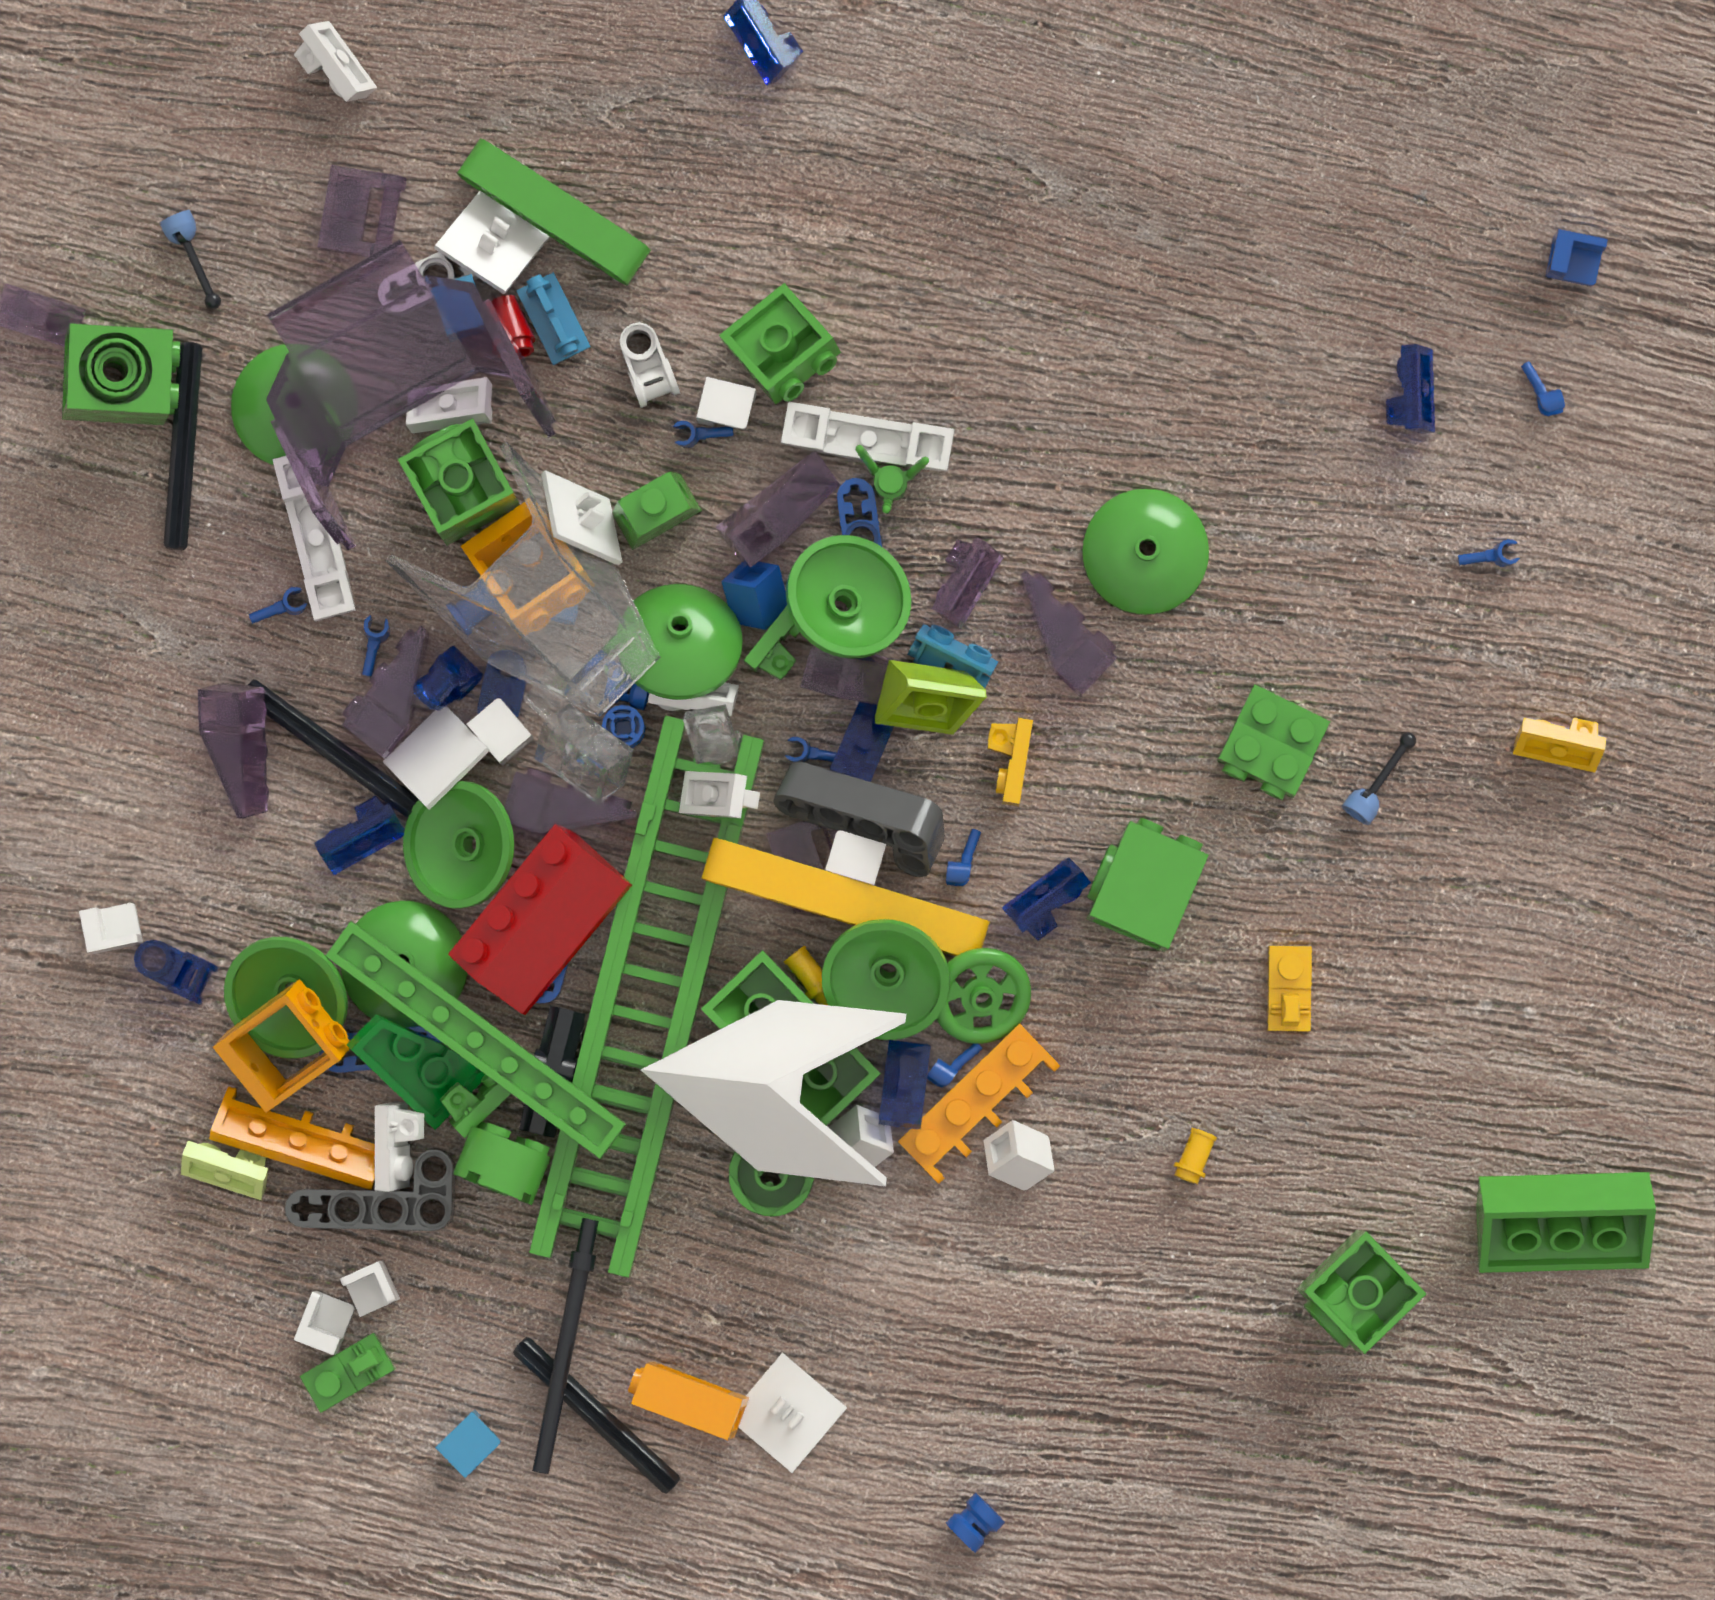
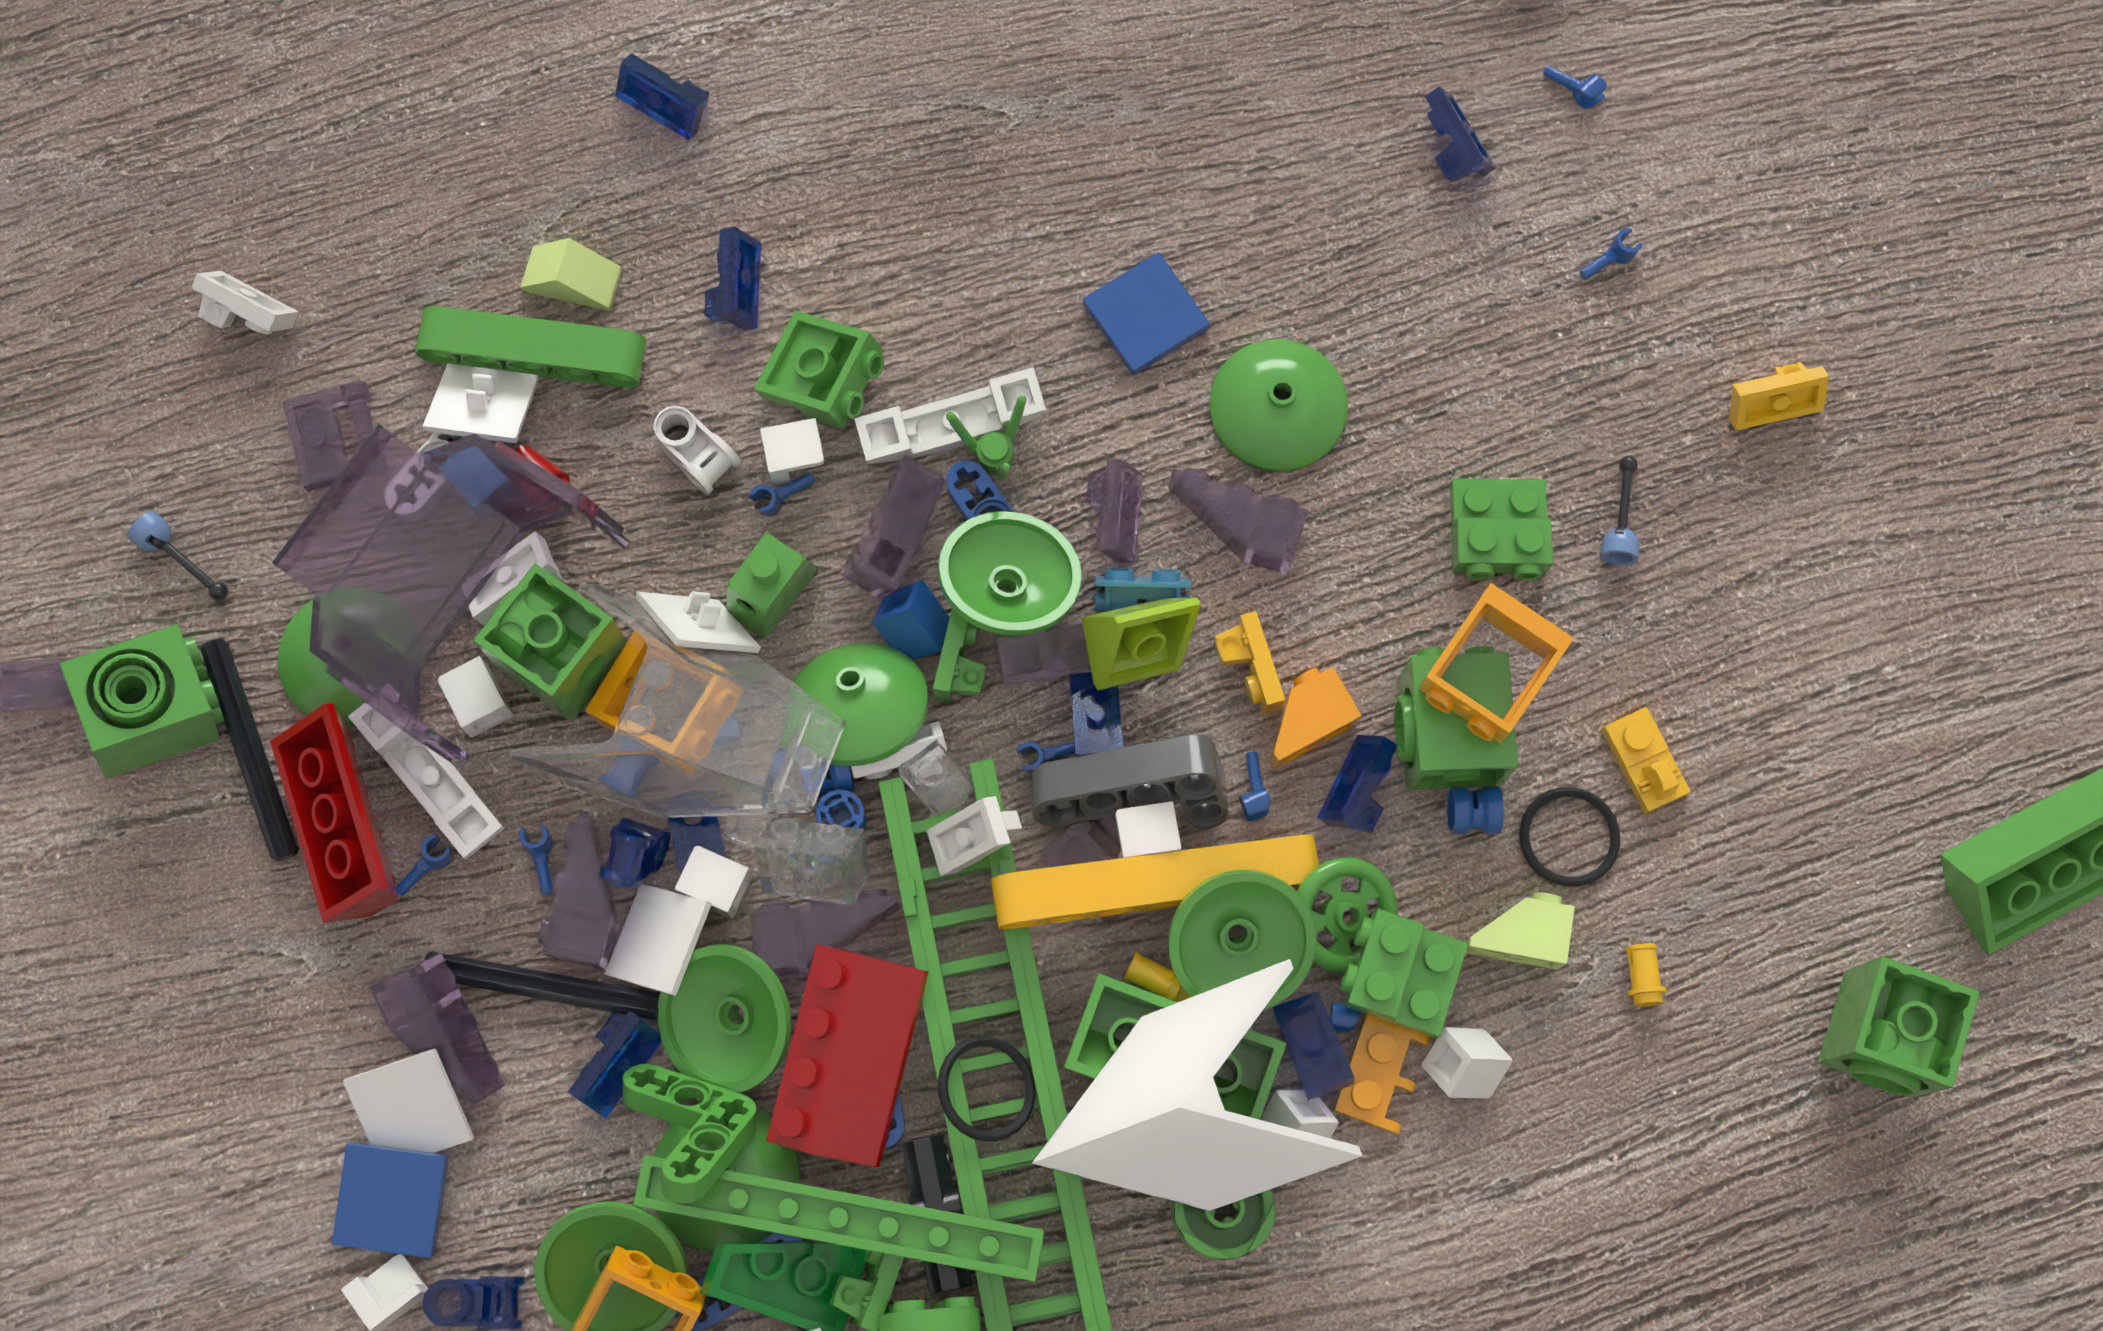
camera: 30 degrees left, 10 degrees down
(143, 859) = (390, 1200): none -> blue tile
(186, 797) = (409, 1105): none -> white piece
(226, 539) = (333, 817): none -> red slope
(379, 490) = (475, 696): none -> white panel
(381, 876) = (657, 1094): none -> bright green beam
(553, 318) = (577, 449): dark azure hinge -> none
(597, 992) = (953, 1117): none -> black tyre
(614, 162) = (571, 274): none -> yellowish green slope
(742, 246) = (739, 280): none -> clear blue hinge
(1002, 1063) = (1403, 973): none -> bright green plate
(1038, 824) = (1313, 715): none -> light orange slope
(1074, 421) = (1146, 314): none -> blue tile
(1118, 1078) = (1528, 933): none -> yellowish green slope
(1138, 963) = (1475, 810): none -> blue wheel
(1156, 1023) = (1549, 875): none -> black tyre
(1223, 836) = (1521, 625): none -> light orange window

